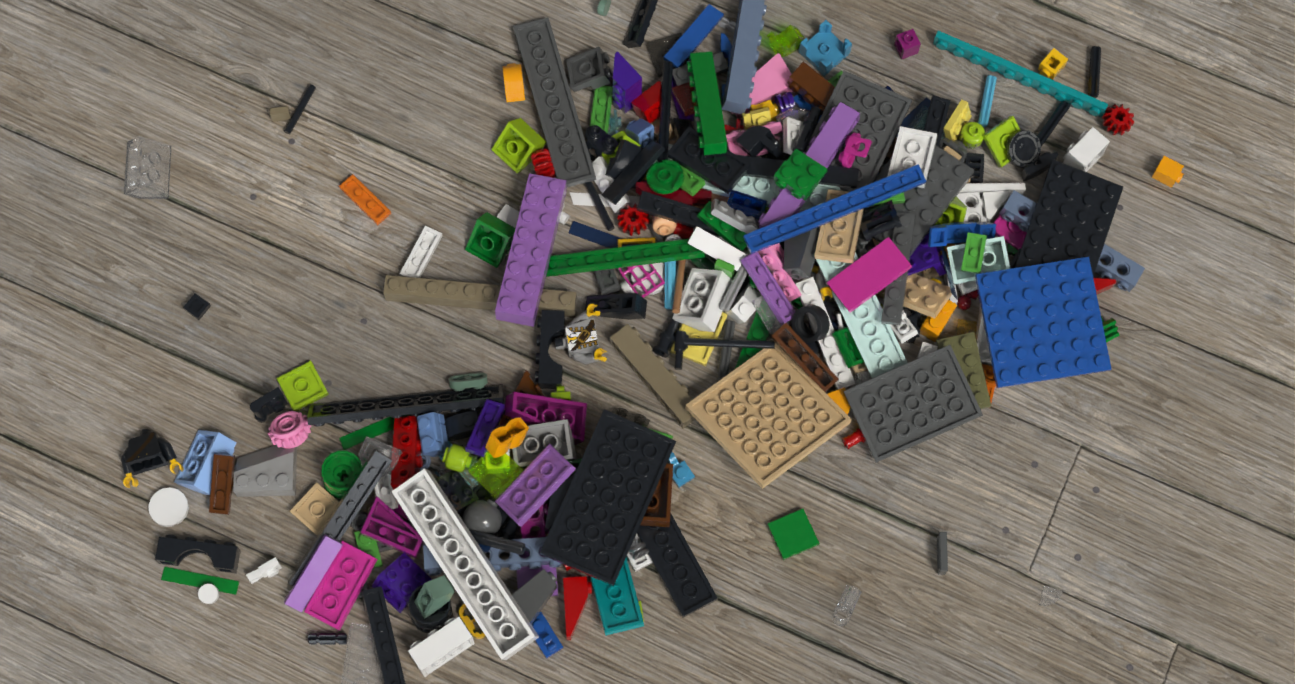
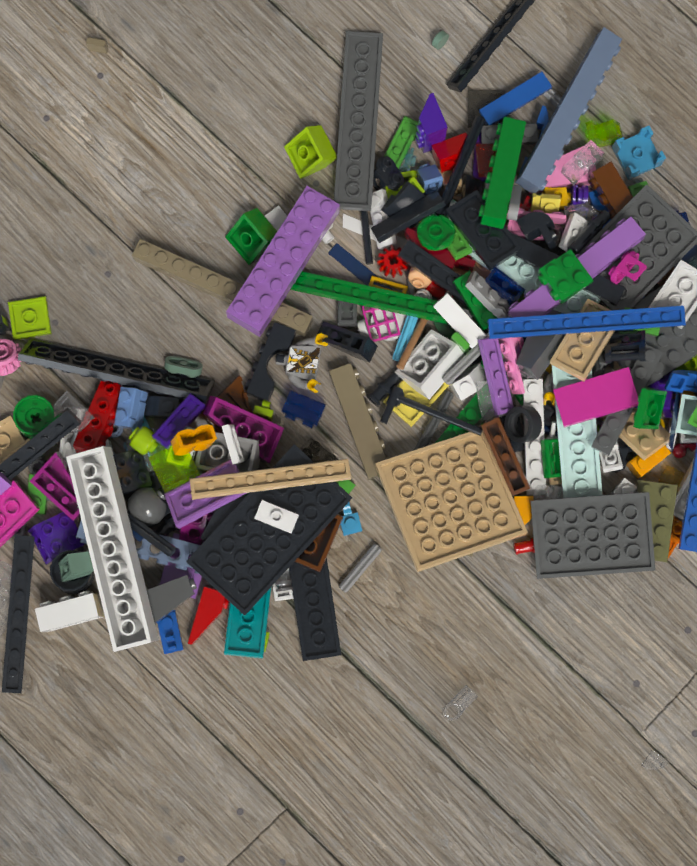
camera: 20 degrees right, 10 degrees up
(300, 108) = (117, 47): black bar -> none
(365, 199) = (148, 156): orange tile -> none
(370, 431) = (72, 383): green sticker -> none
(421, 253) = (182, 228): white plate -> none
(513, 82) = (326, 87): light orange brick -> none
(542, 163) = (325, 179): red gear -> none
(545, 429) = (233, 444): none -> white tile
(589, 69) = (403, 99): dark grey plate -> none
(592, 448) = (270, 479): none -> tan tile
(598, 382) = (303, 409): none -> clear blue brick
(611, 481) = (276, 516): none -> white plate
(705, 512) = (359, 569): none -> light grey axle
(729, 126) = (514, 203): none -> light grey beam
(777, 71) = (582, 162): none -> clear brick
(793, 534) = (434, 618): green tile -> none
(846, 381) = (537, 492): none -> clear plate
(922, 267) = (649, 408): none -> green plate
(942, 556) = (567, 686): dark grey tile -> none

